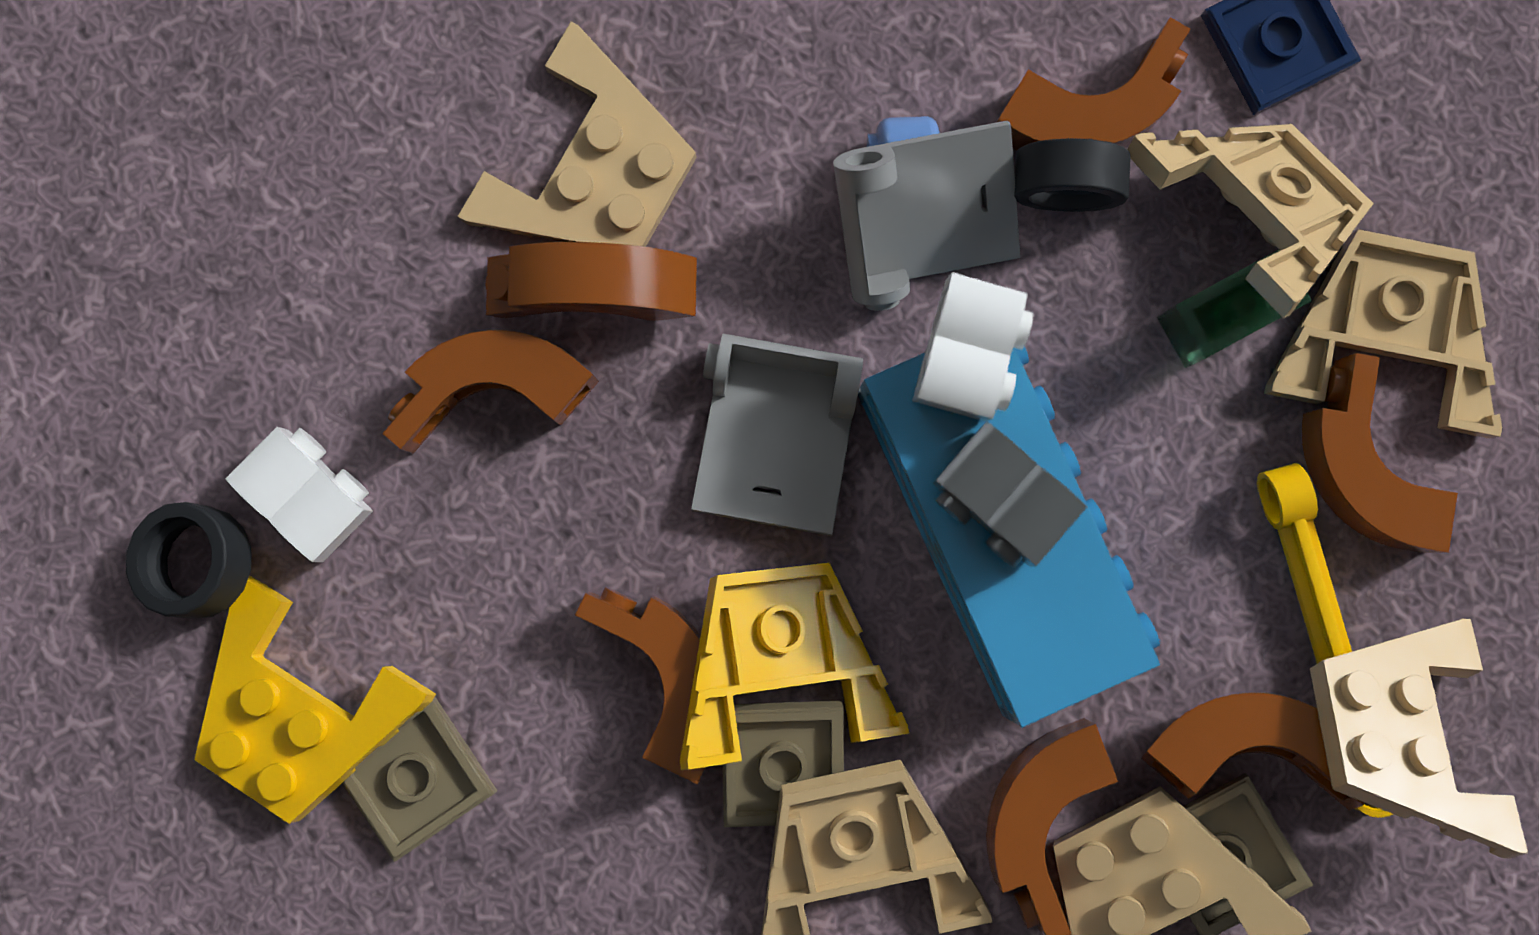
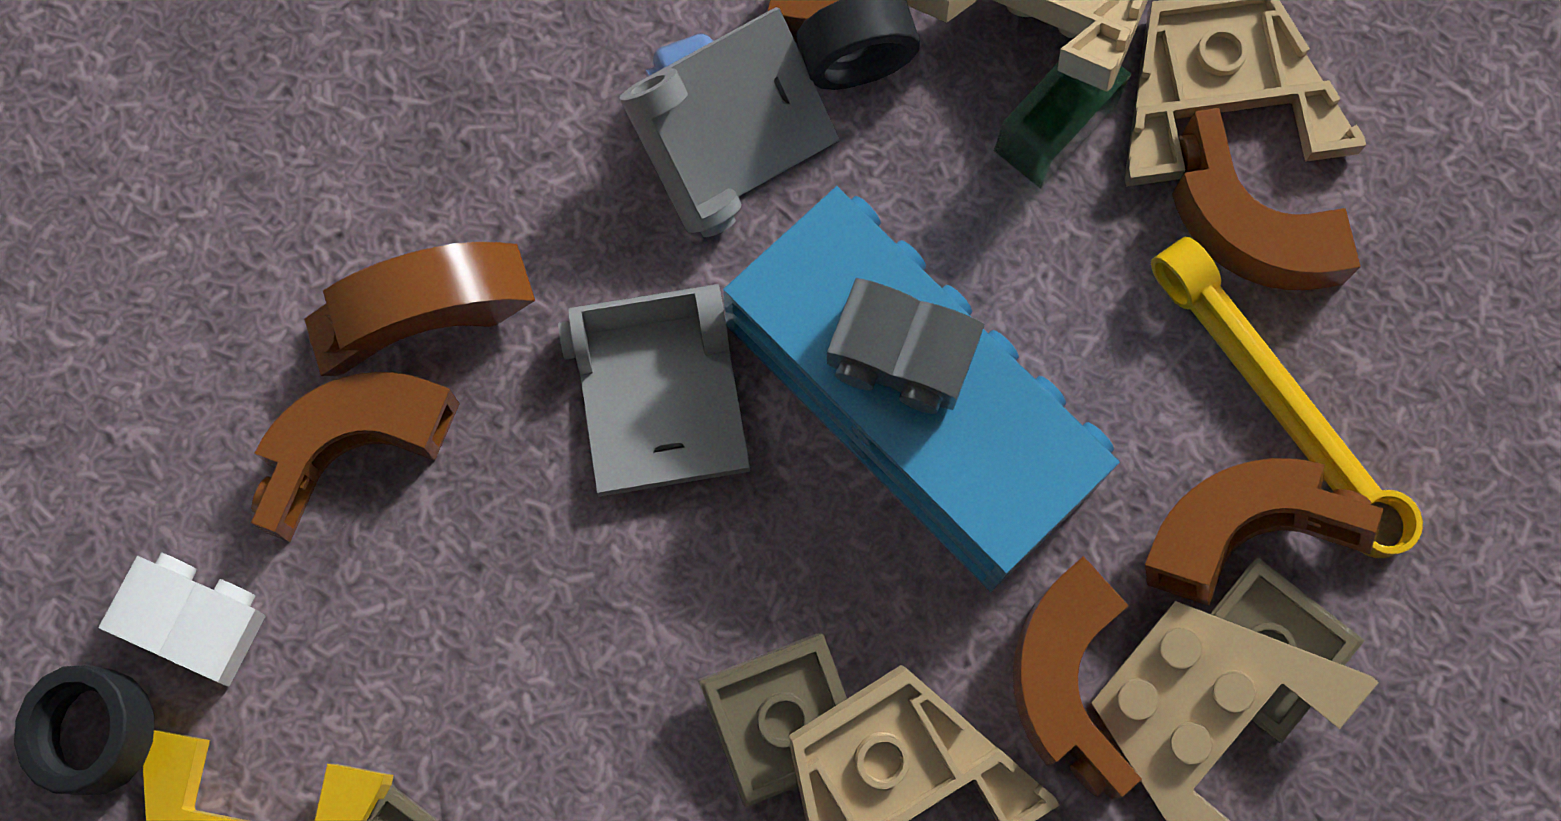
camera: 20 degrees left, 10 degrees down
(614, 172) = (406, 194): tan wing -> none
(672, 647) = (666, 688): dark orange arch -> none
(777, 634) = (729, 585): yellow wing -> none
(972, 348) = (817, 218): white brick -> none
(1389, 737) = (1378, 464): wing -> none

